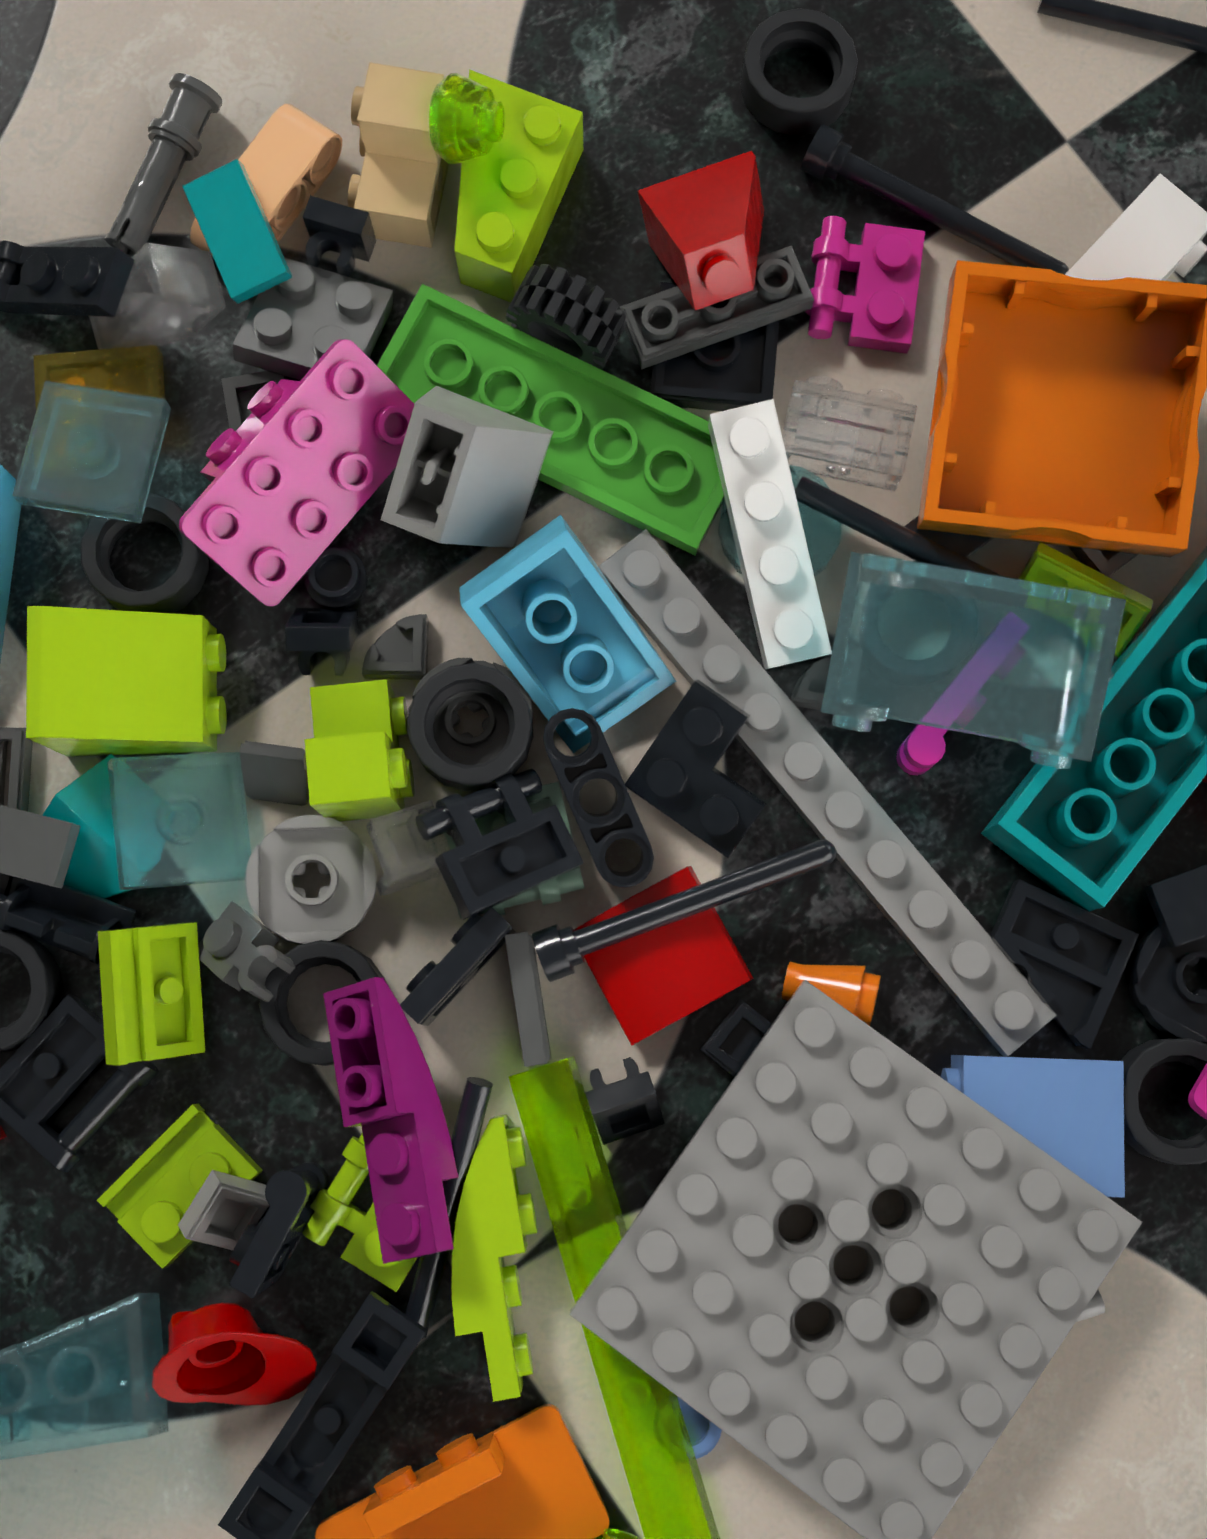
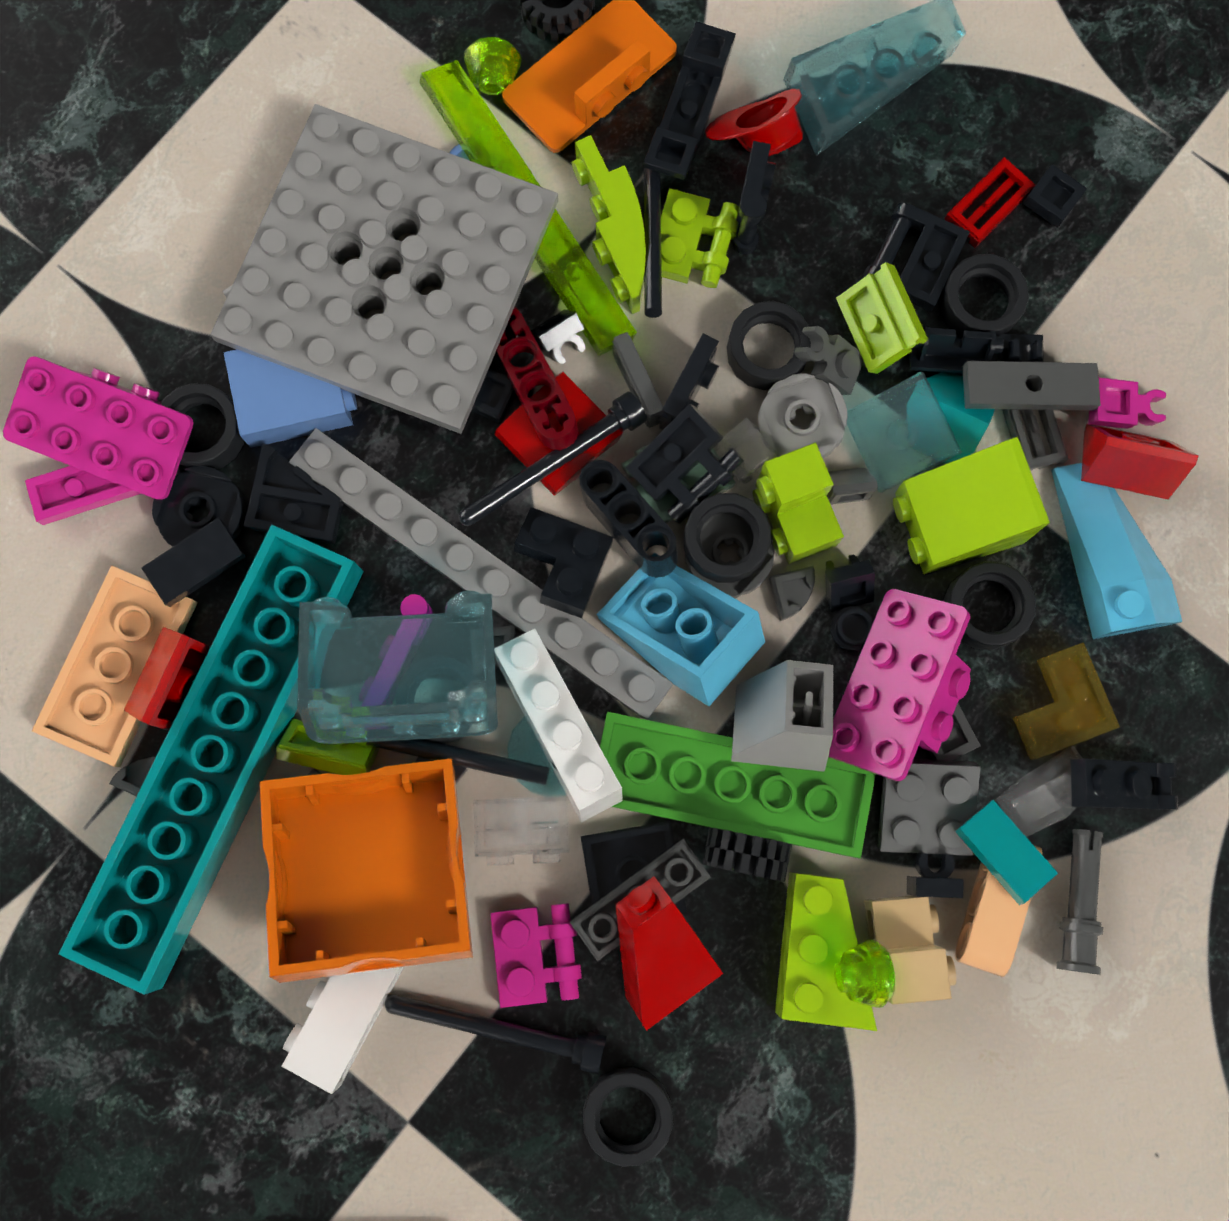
camera: 165 degrees right, 0 degrees up
(92, 451) = (1050, 661): clear light blue plate -> none
(166, 1179) = (823, 217): lime plate -> none
(223, 1210) = (790, 204): light grey tile -> none
(404, 1129) = (703, 285): magenta slope -> none
(676, 1043) = (532, 375): none -> dark red beam
(843, 983) = (436, 441): orange cone -> none

